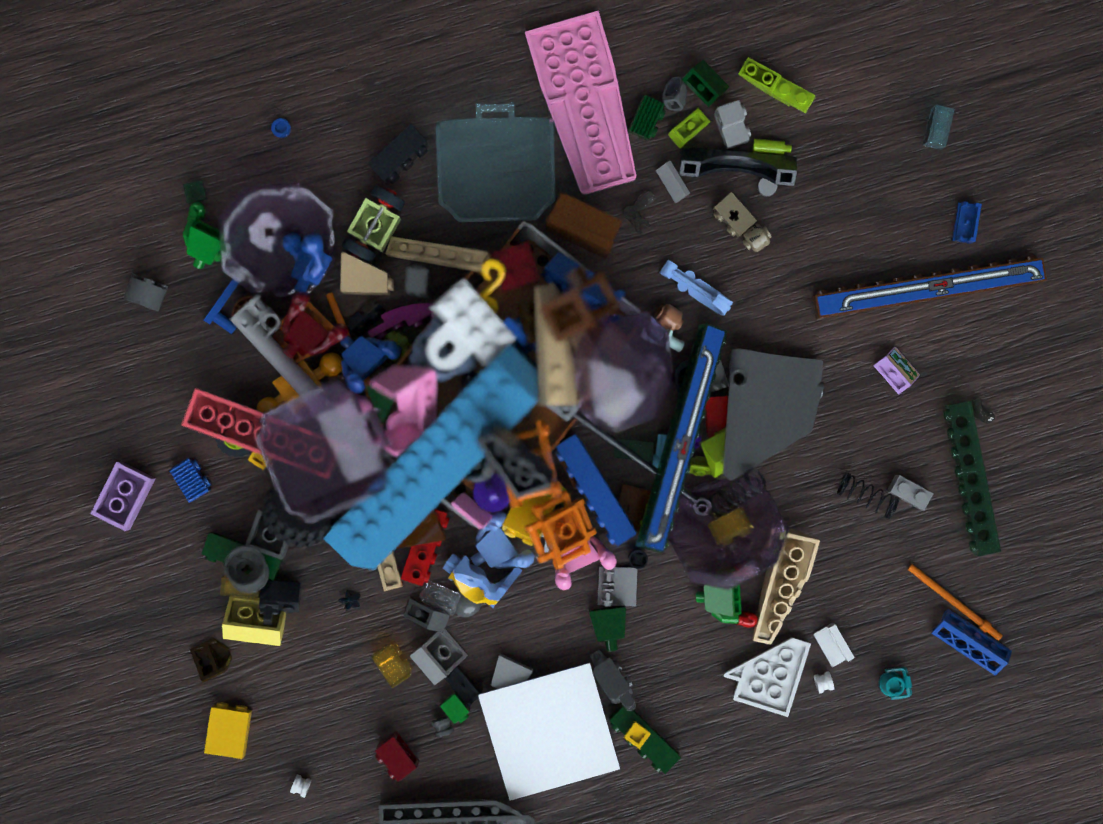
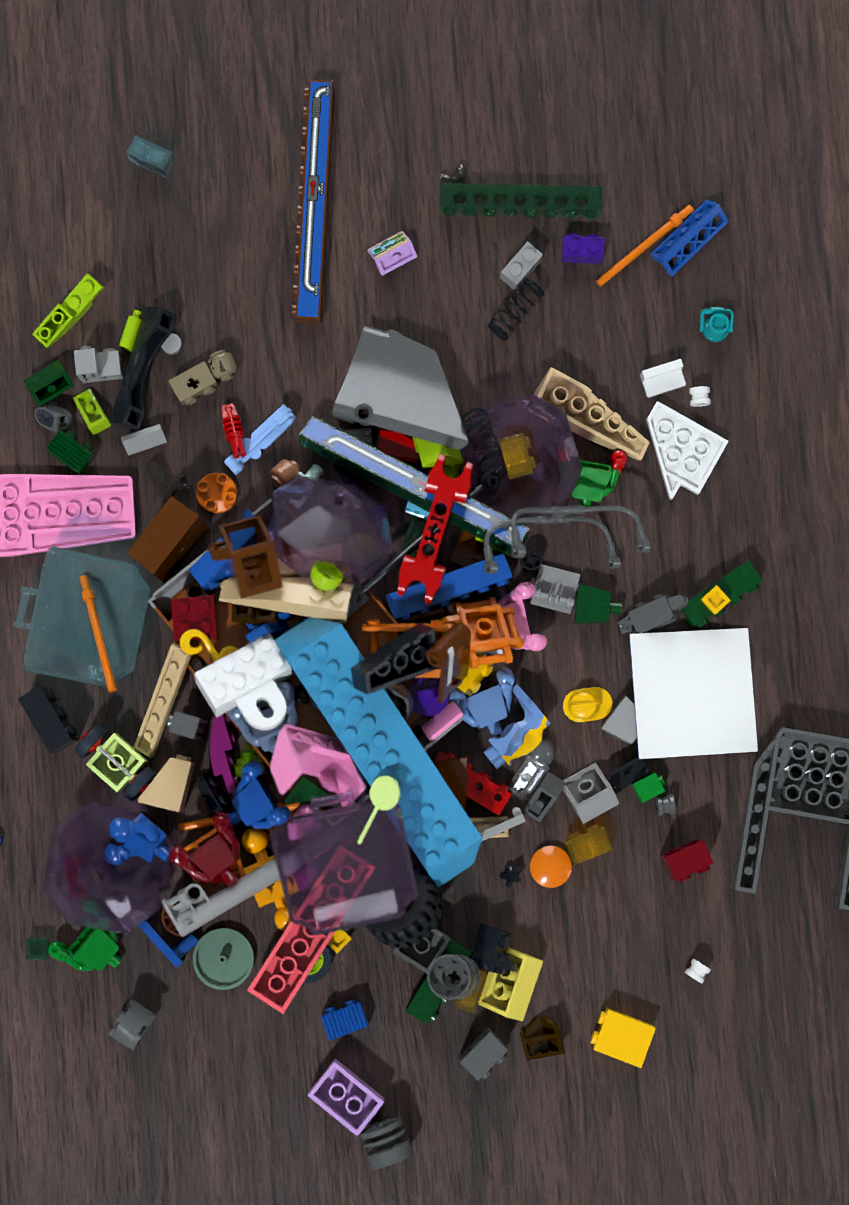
camera: 85 degrees left, 5 degrees down
(90, 540) = (387, 1147): none -> dark grey wheel
(186, 610) = (483, 1054): none -> dark grey brick
(221, 359) = (223, 958): none -> sand green piece
(365, 634) = (550, 866): none -> orange dish
(391, 474) = (384, 796): none -> yellowish green piece
(399, 595) = (505, 825): none -> light grey hinge
(517, 165) = (88, 597): none -> orange bar
(518, 637) = (587, 704): none -> yellow piece
(529, 507) = (452, 657): none -> reddish brown door
(576, 379) = (325, 576): none -> lime hair
(608, 464) = (446, 491): none -> red piece
(638, 259) = (216, 492): none -> orange dish
(681, 577) = (559, 514): none -> dark grey bar
(699, 261) = (233, 429): none -> red hinge
(938, 545) = (582, 249): none -> dark purple brick
(966, 222) = (255, 149): blue hinge -> none

